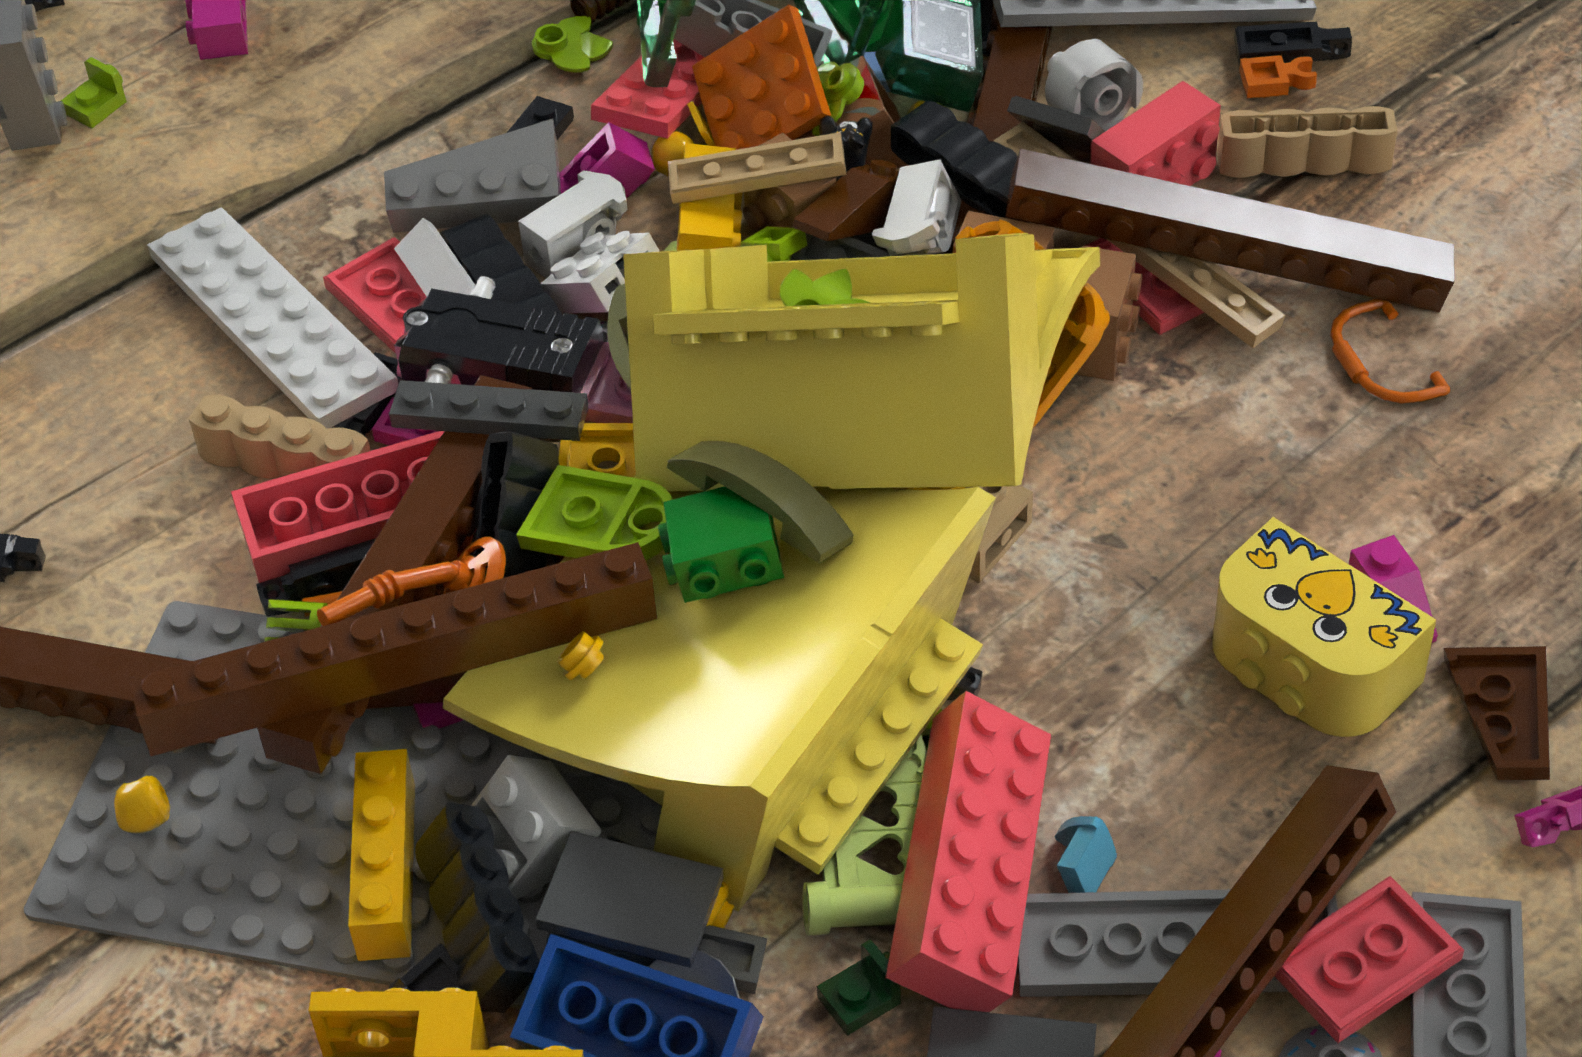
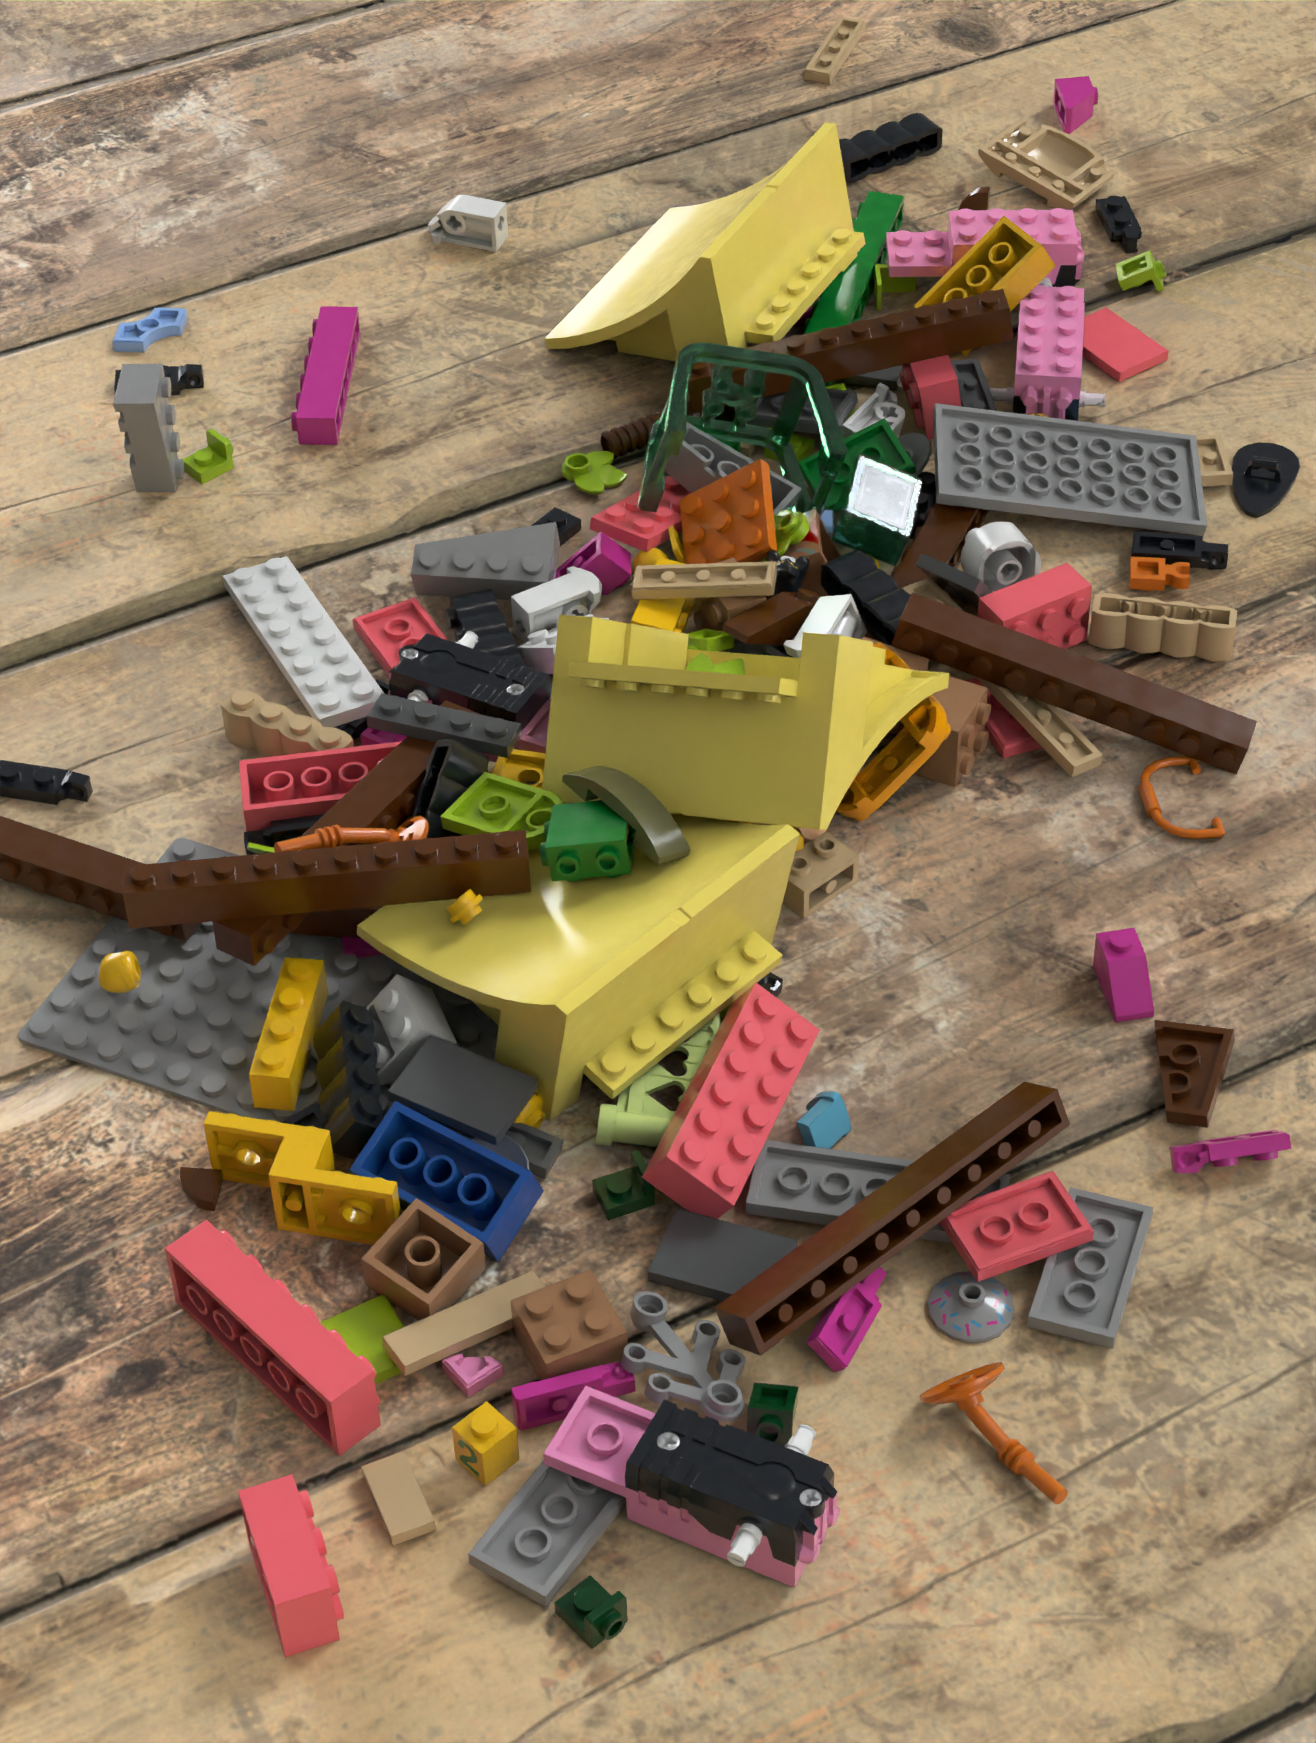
camera: 10 degrees right, 5 degrees down
(432, 261) = (437, 615): white tile -> none
(1317, 633) = (1052, 990): light yellow brick -> none

